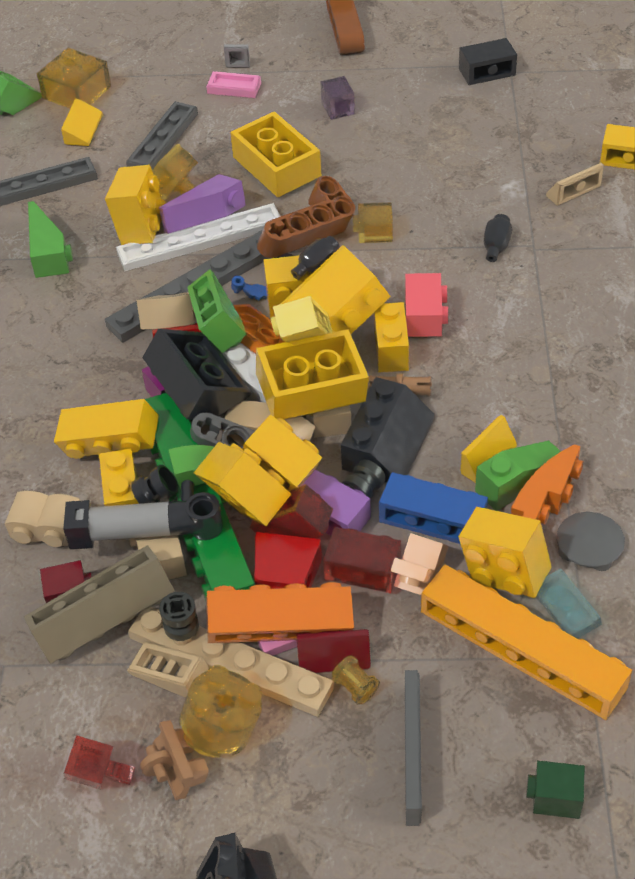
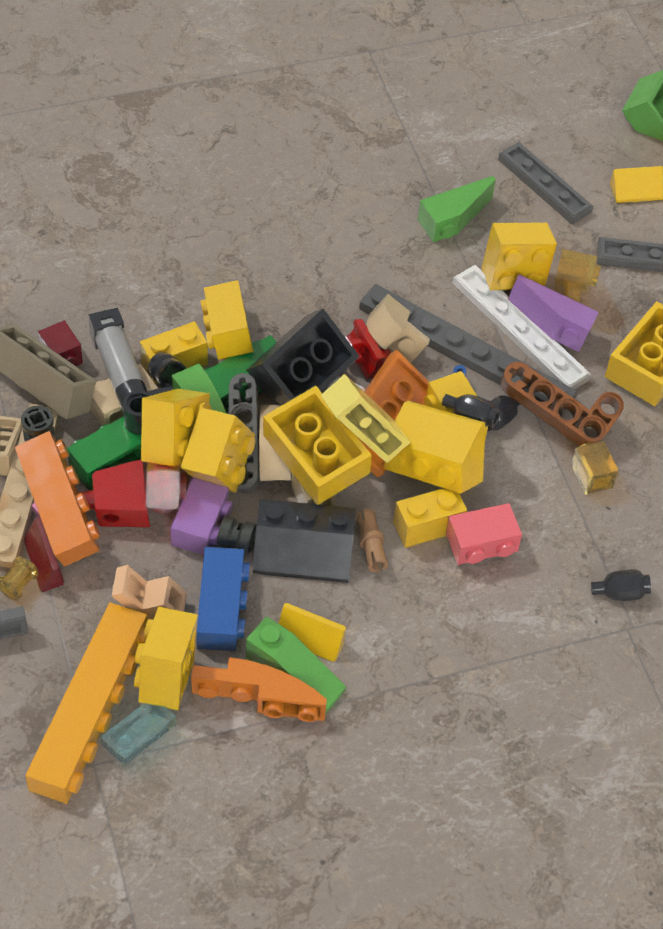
camera: 65 degrees right, 5 degrees up
(38, 518) = (131, 302): tan brick -> none
(215, 312) = (378, 353): bright green slope -> none
(361, 559) = (143, 545): clear red brick -> none
(590, 540) = (227, 743): dark grey dish -> none

